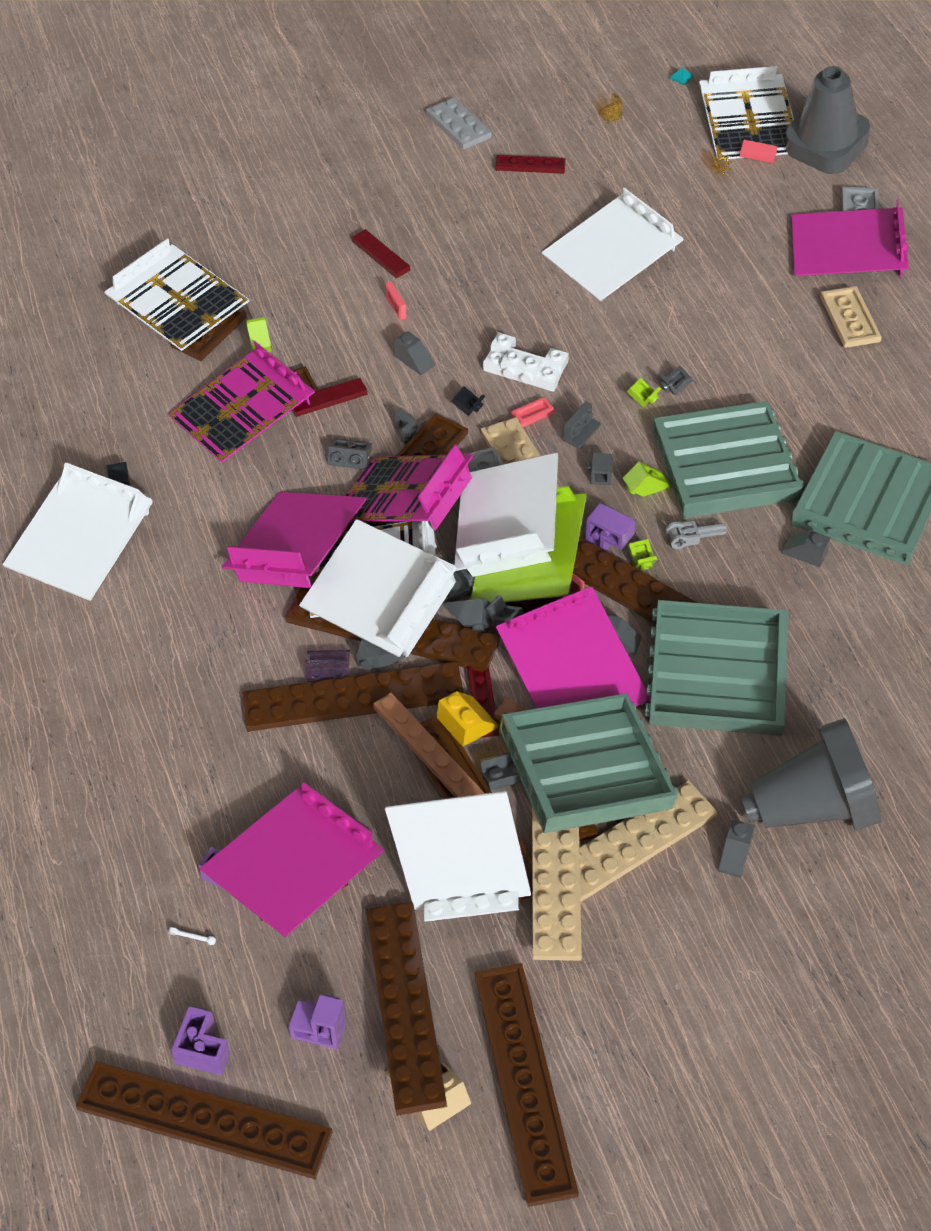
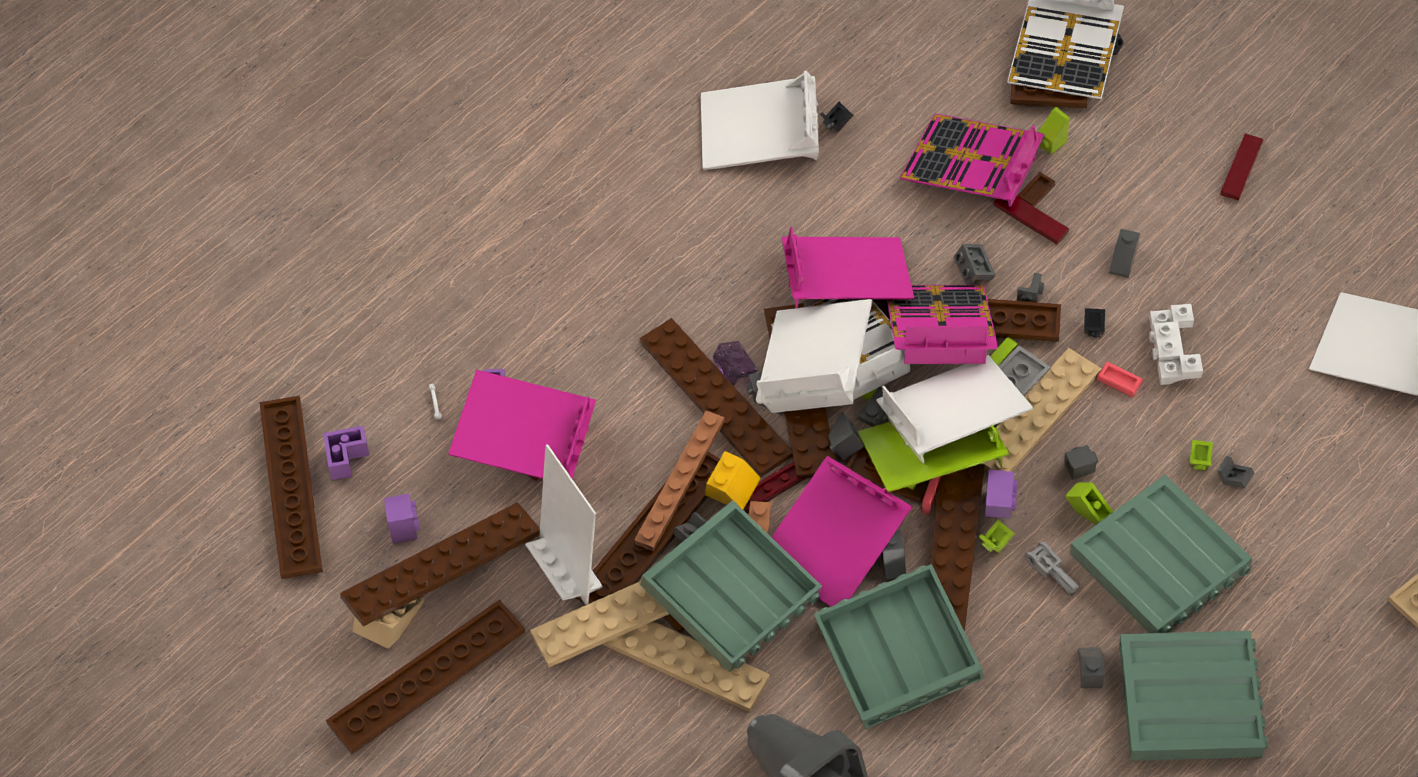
camera: 65 degrees right, 5 degrees up
(395, 300) = (1183, 207): coral tile -> none
(501, 613) = (855, 457): dark grey bracket -> none
(580, 426) = (1120, 422): dark grey bracket -> none
(736, 848) = (719, 736): dark grey slope -> none

